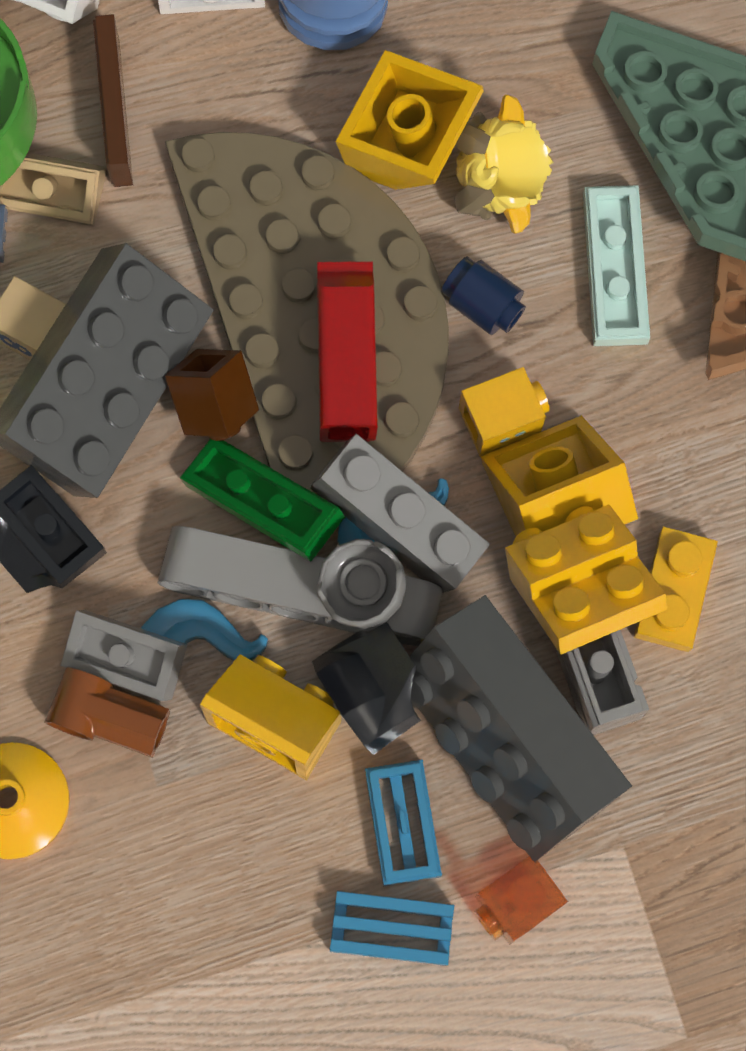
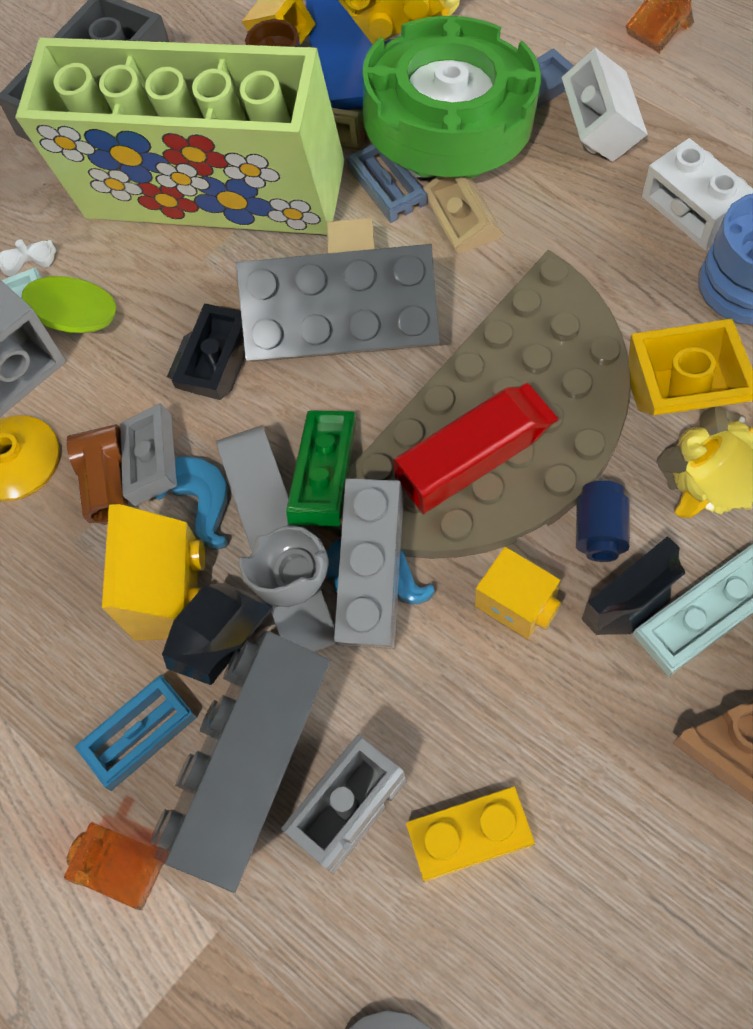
camera: 70 degrees right, 10 degrees down
(112, 100) = (549, 201): reddish brown tile -> none
(212, 393) = (377, 384): reddish brown brick -> none
(440, 933) = (24, 785): dark azure tile -> none
(556, 473) = (484, 679): yellow slope -> none
(569, 311) = (636, 592): none -> black slope
(583, 577) = (403, 736): yellow plate -> none

